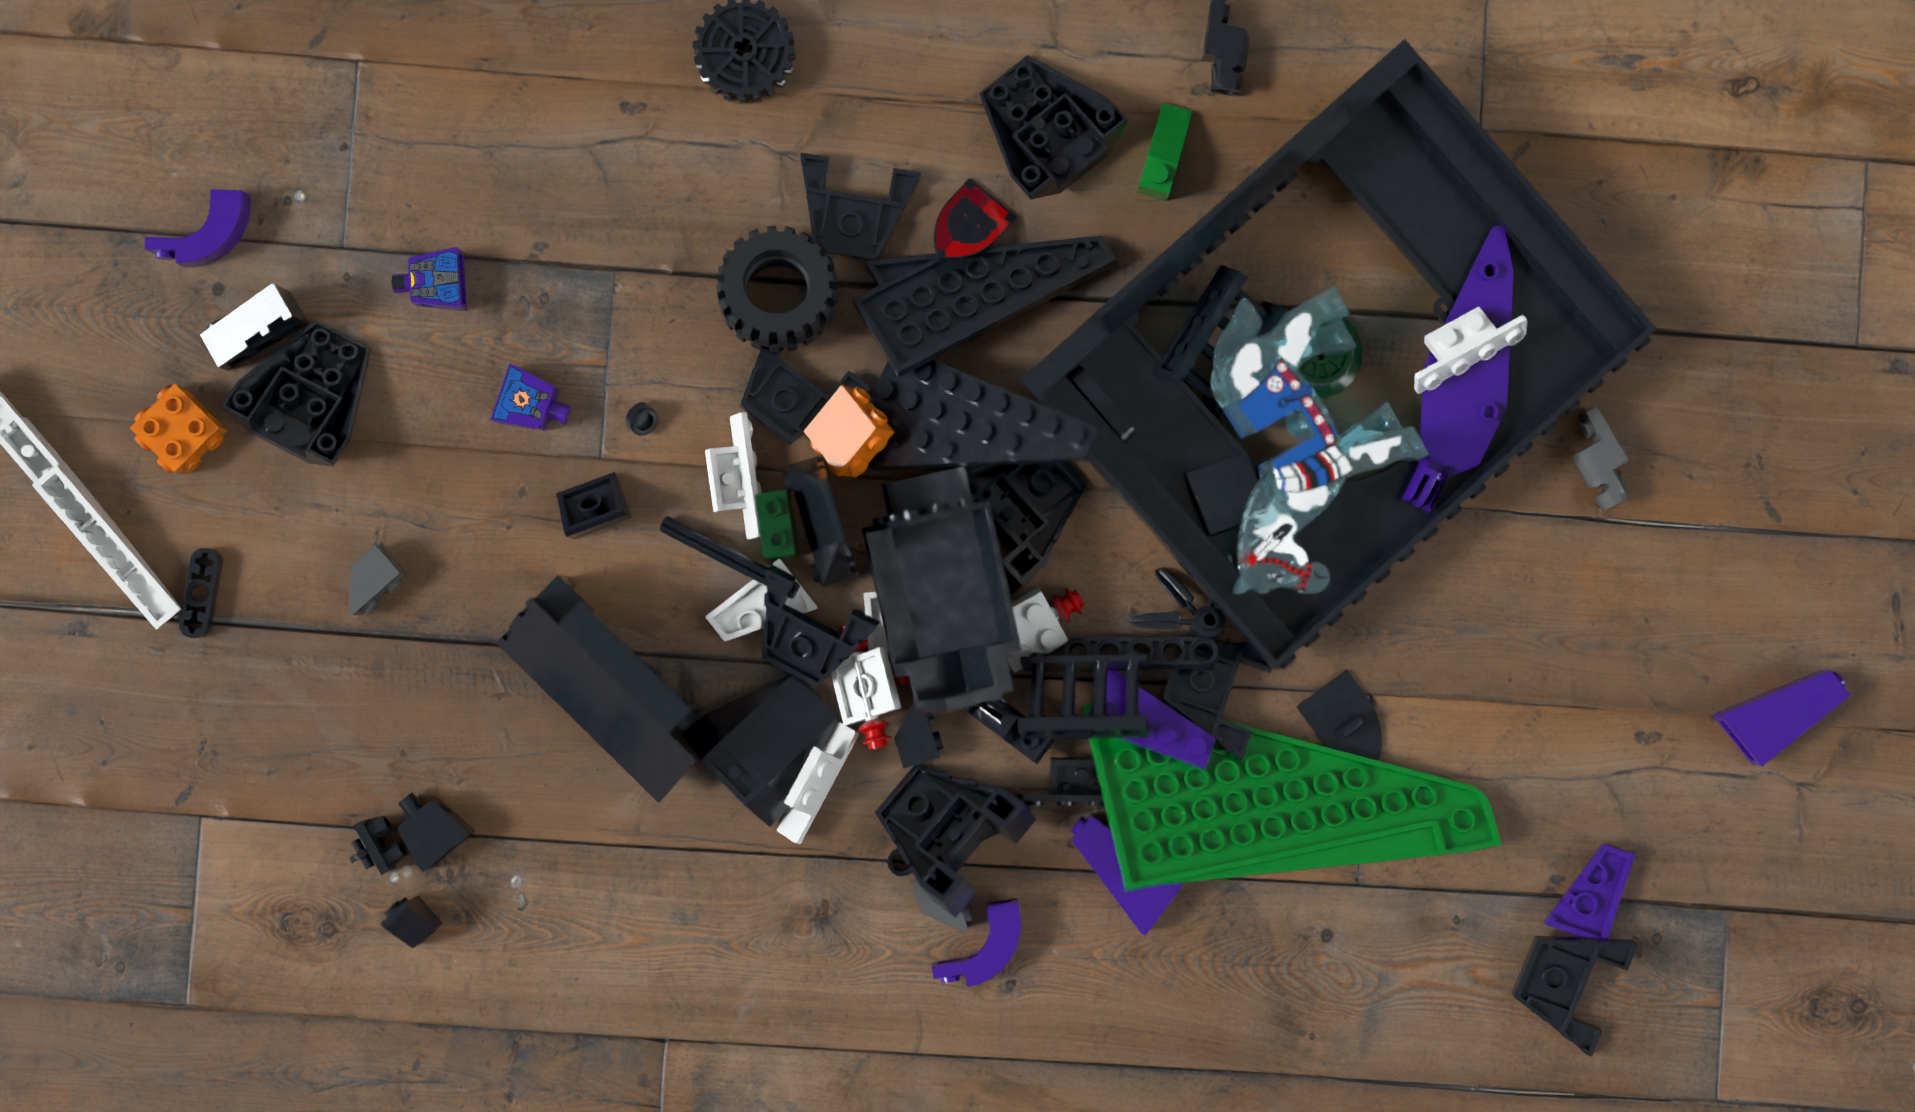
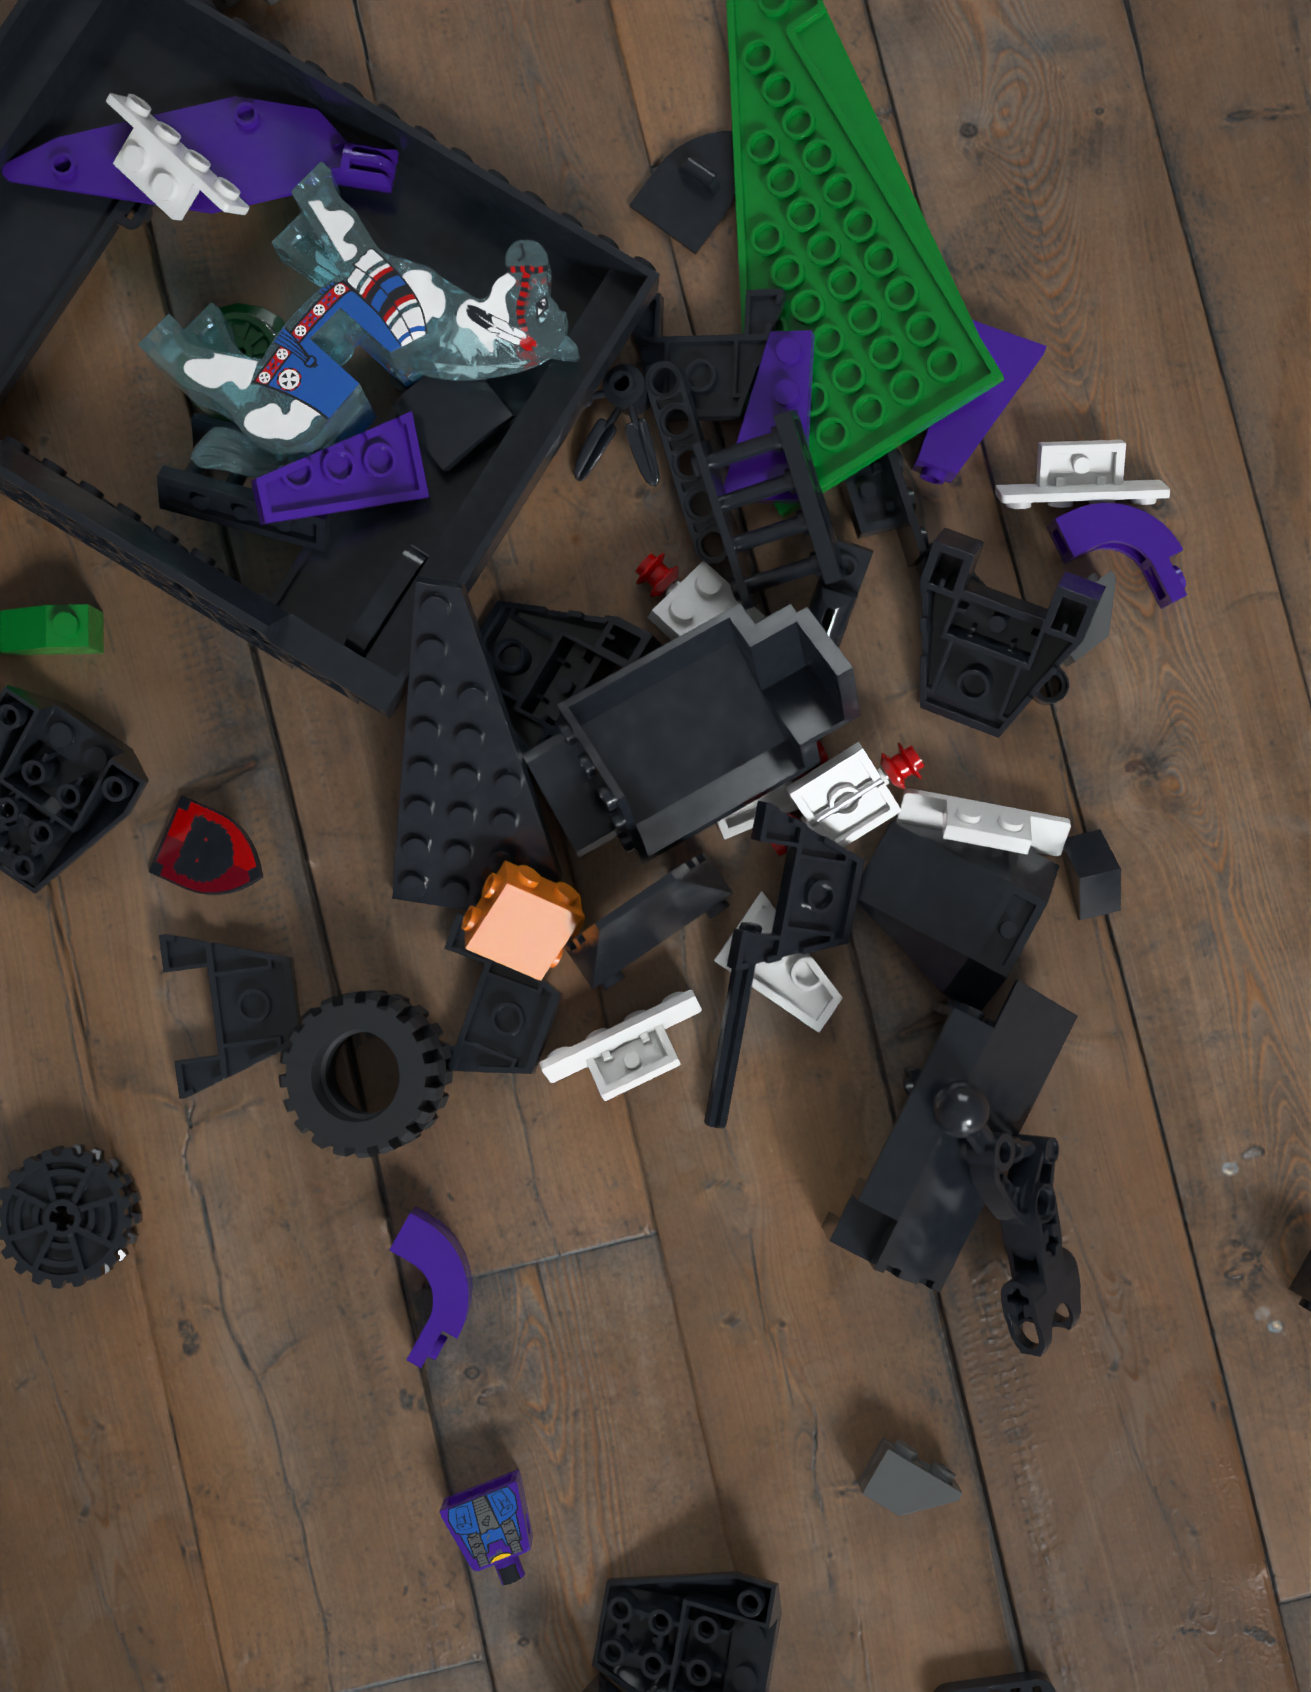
camera: 110 degrees left, 0 degrees up
(370, 834) = (1250, 1368): black hips -> none
(431, 830) = (1203, 1299): black torso -> none
(528, 402) = (613, 1352): torso -> none
(536, 721) = (1028, 1211): none -> black piece
(592, 506) = (721, 1224): black slope -> none
(622, 303) = (444, 1263): none -> dark purple arch
(641, 419) = (589, 1196): black tile -> none
(756, 848) = (1092, 874): none -> black slope
(777, 525) = (674, 975): dark green panel -> none
(916, 740) = (889, 714): black slope -> none
(938, 304) = (323, 857): black wing -> none
(1045, 934) = (1081, 473): none -> white bracket
(1199, 410) = (354, 474): none -> dark purple wing

